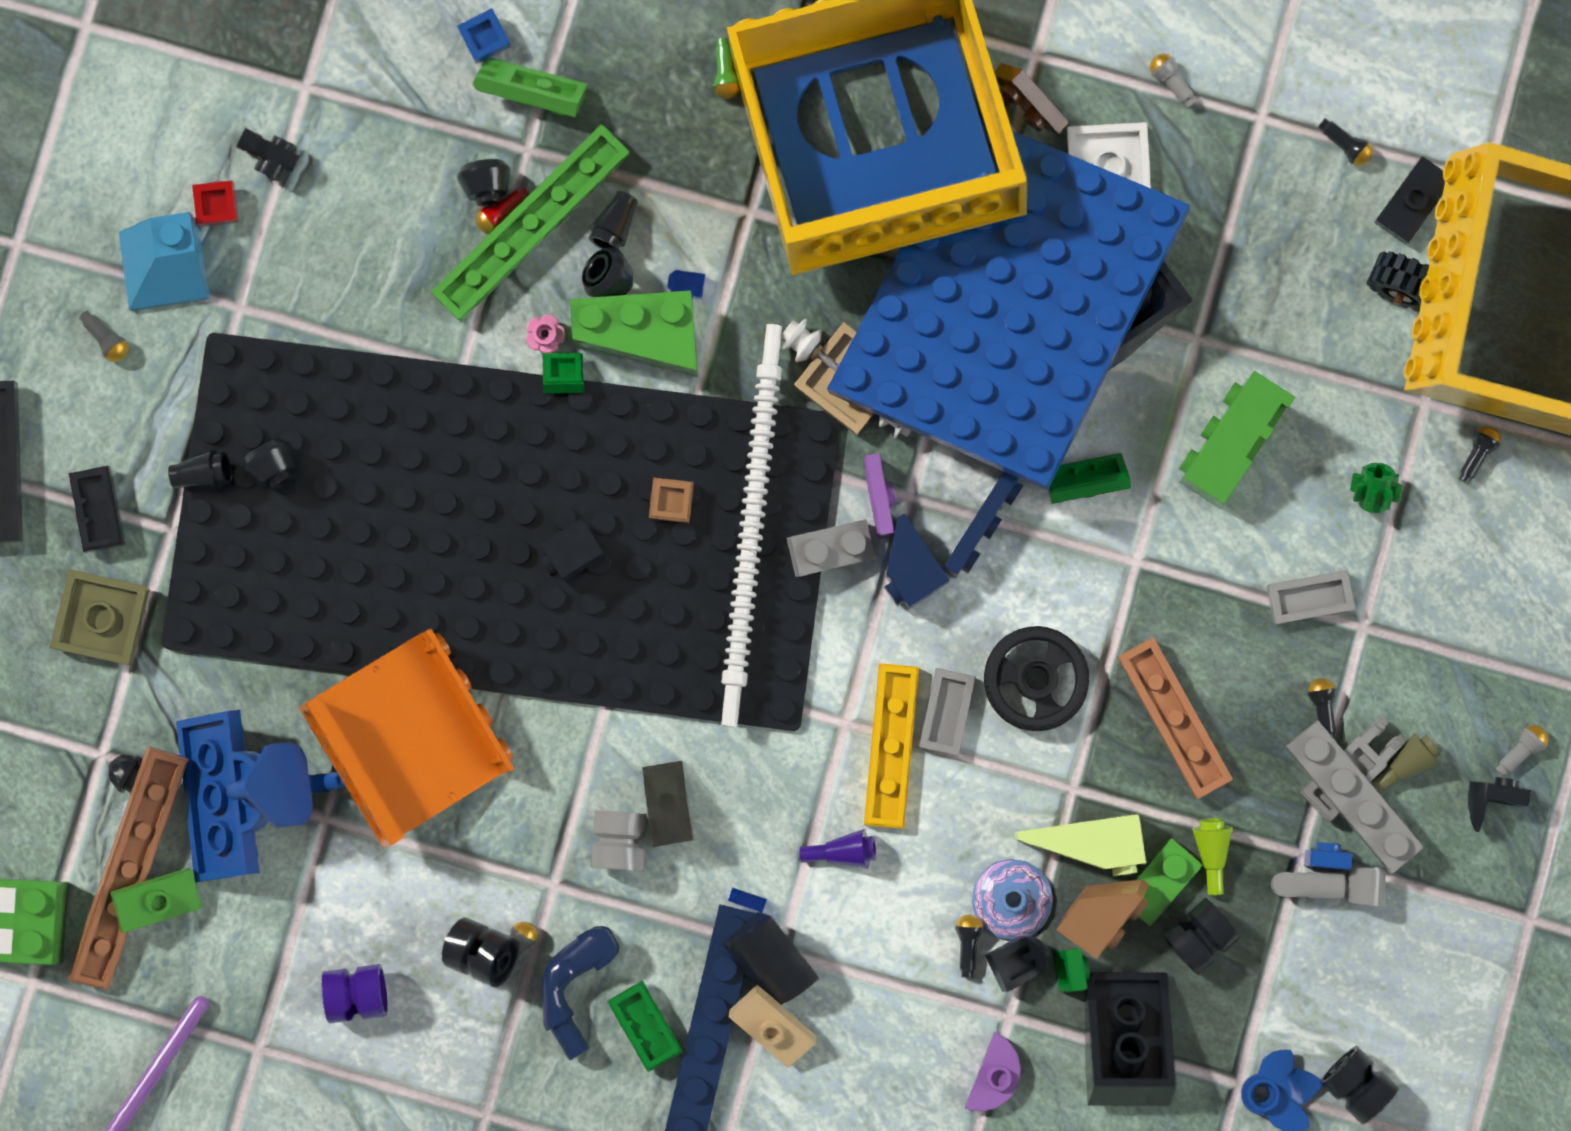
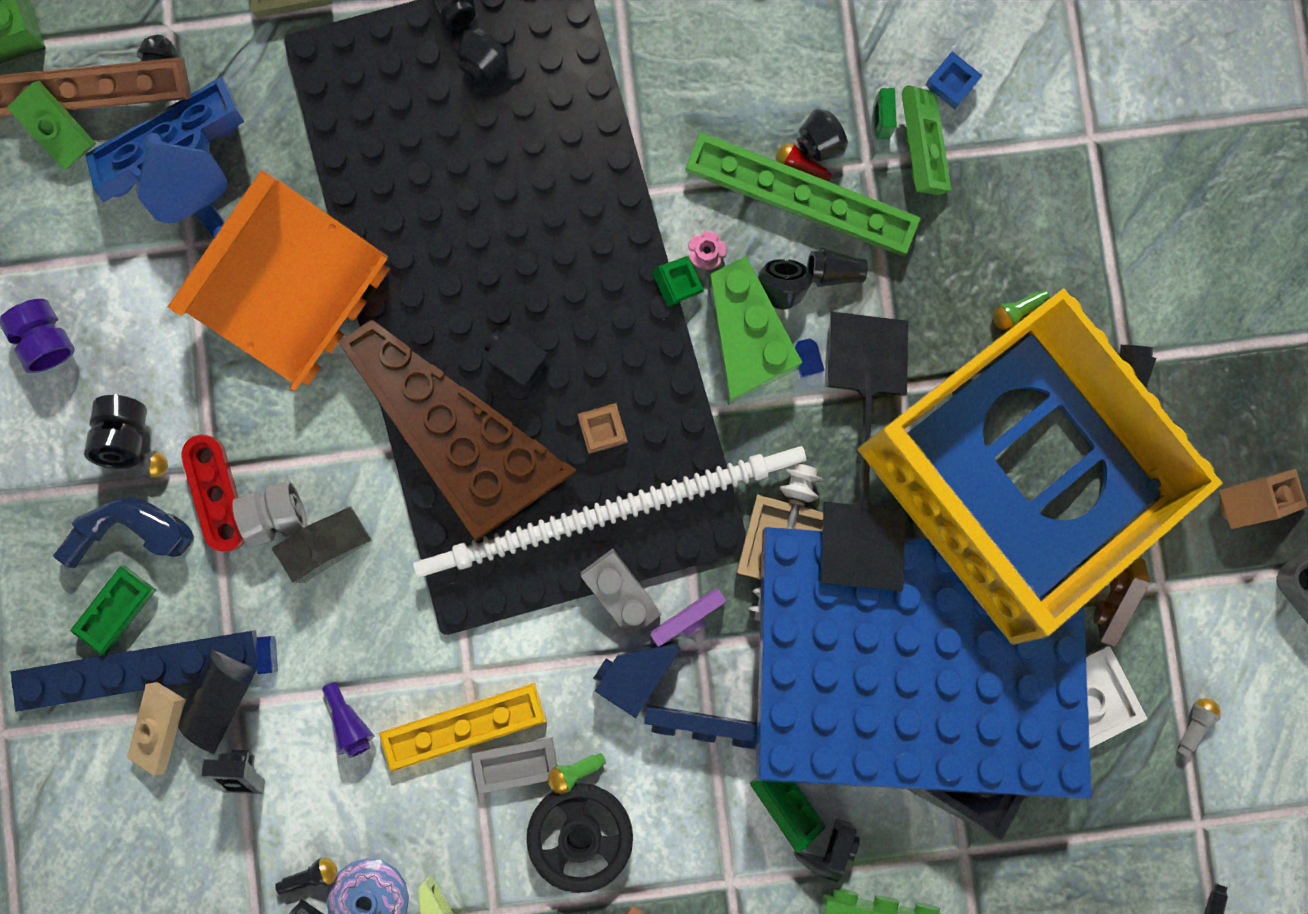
camera: 60 degrees right, 0 degrees up
(488, 113) = (885, 113): none -> green tile
(557, 881) = (202, 480): none -> red plate
(631, 633) = (465, 445): none -> reddish brown wing
(846, 966) = (233, 773): none -> black plate
(874, 308) = (861, 540): none -> black hinge
(976, 668) = (563, 778): none -> bright green piece
(1145, 447) = (841, 847): none -> black plate

